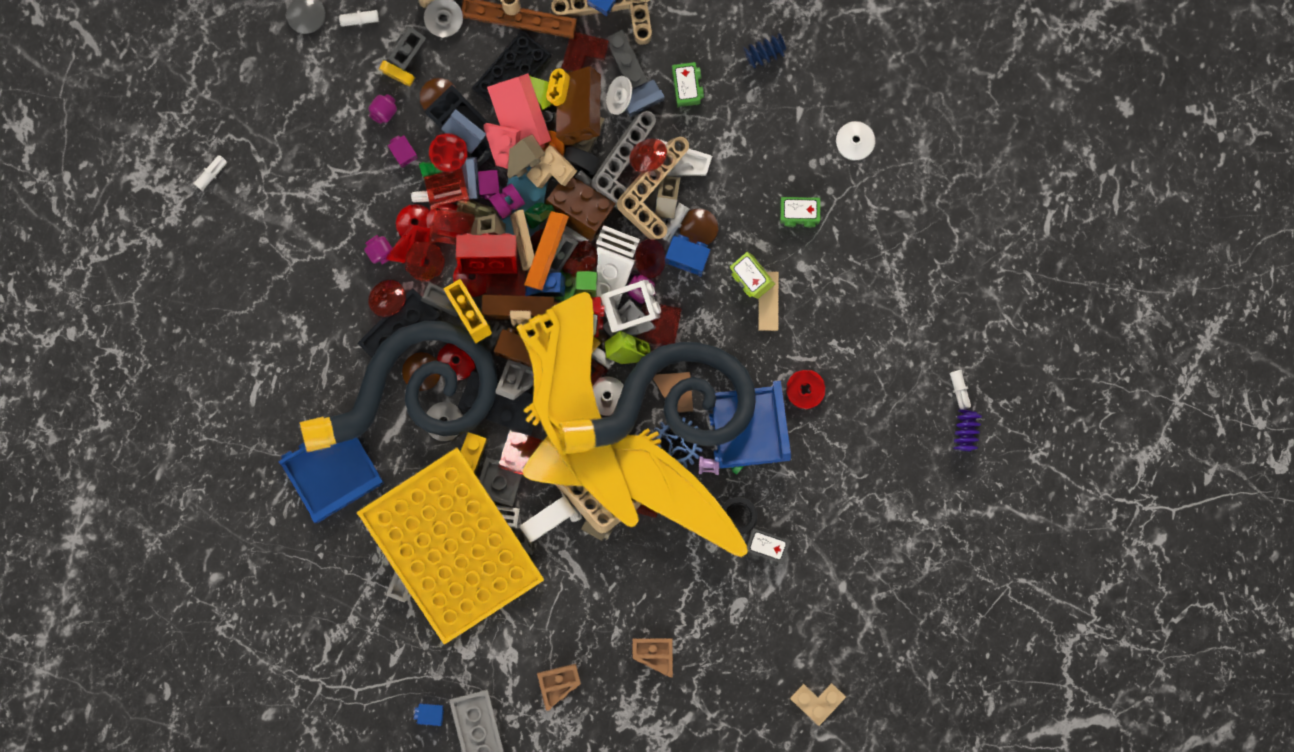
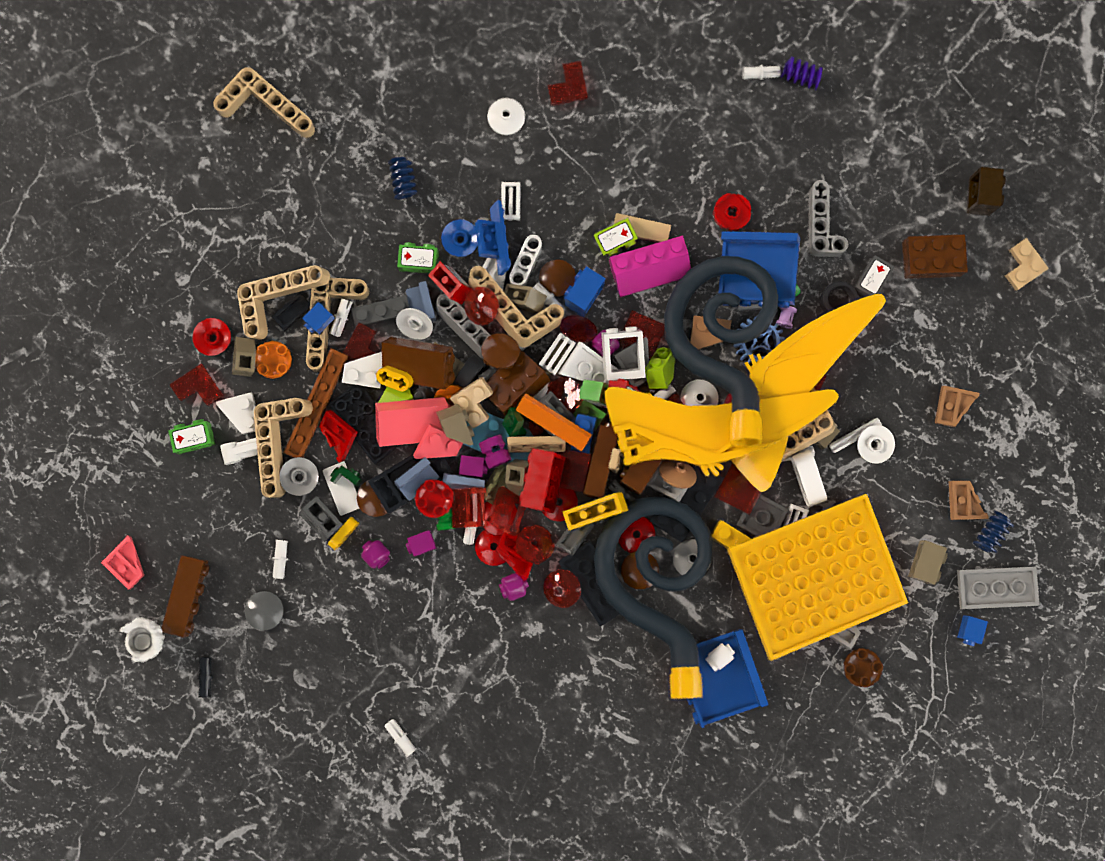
camera: 80 degrees left, 0 degrees up
(351, 467) = (720, 657): none -> white brick
(370, 612) = (863, 667): none -> reddish brown dish
(441, 61) = (342, 492): none -> white sticker
(455, 66) = (351, 475): none -> dark green bracket
(488, 657) = (928, 562): none -> dark tan brick
(493, 46) = (338, 434): none -> red wing
(521, 386) = (678, 473): none -> medium nougat dish
(532, 718) = (993, 532): none -> dark blue piece
(560, 55) = (363, 371): none -> white wing
(590, 588) = (884, 444): none -> white dish
(602, 559) = (851, 437): none -> white axle
(606, 183) = (500, 351): none -> reddish brown dish
(610, 22) = (341, 317): none -> white axle
(667, 120) = (450, 282): none -> red brick
(699, 185) = (526, 253): none -> white beam
(720, 112) = (458, 229): none -> blue dish
(722, 152) = (492, 238): none -> blue bracket
(730, 317) = (650, 266): none -> dark pink slope
(769, 171) = (510, 217): none -> white tile
(799, 211) = (563, 179): brick -> none
(804, 604) = (934, 256): none -> reddish brown brick
(819, 482) = (822, 219): none -> light grey beam
(882, 642) = (985, 191): none -> dark brown brick
(899, 201) = (572, 89): none -> clear red plate

